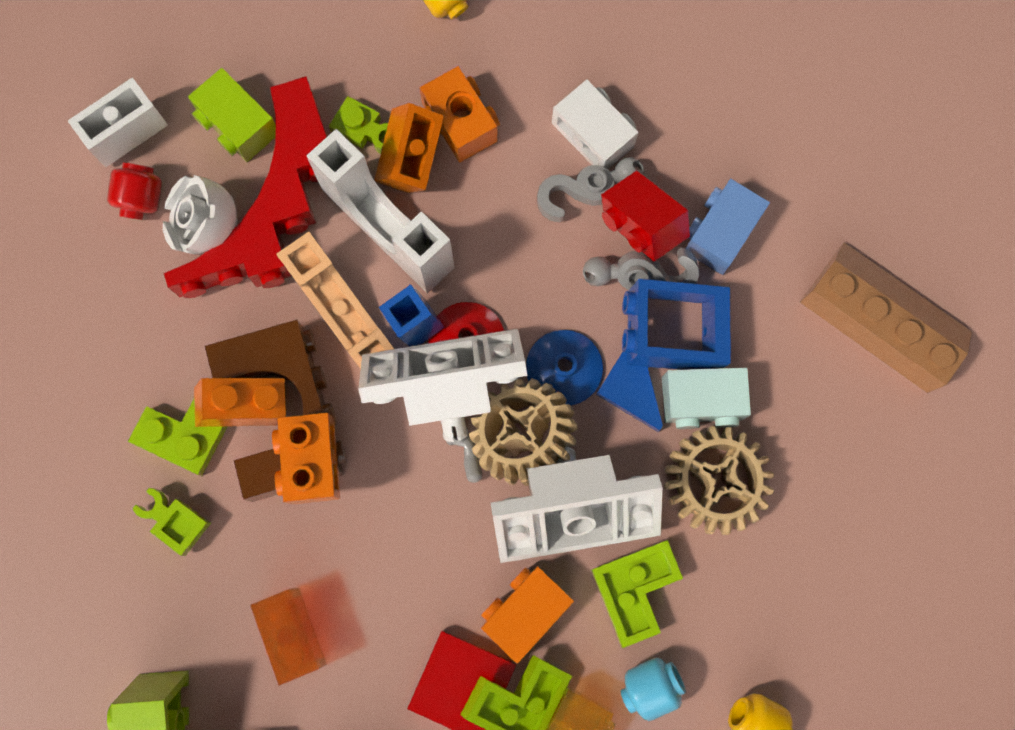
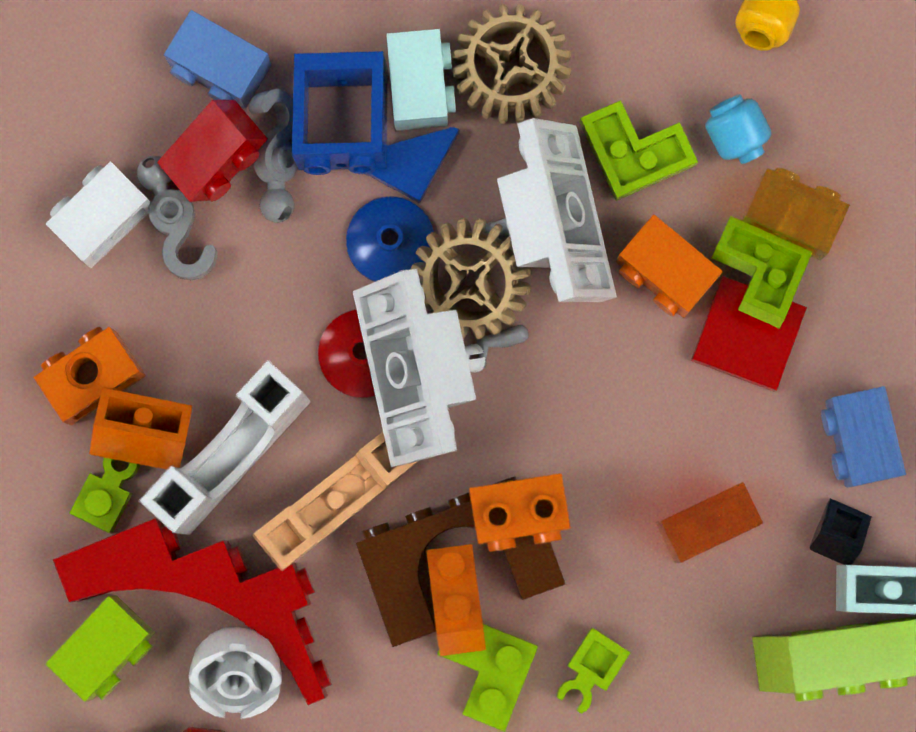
camera: 90 degrees left, 5 degrees up
(411, 317) = (345, 412): blue brick -> none

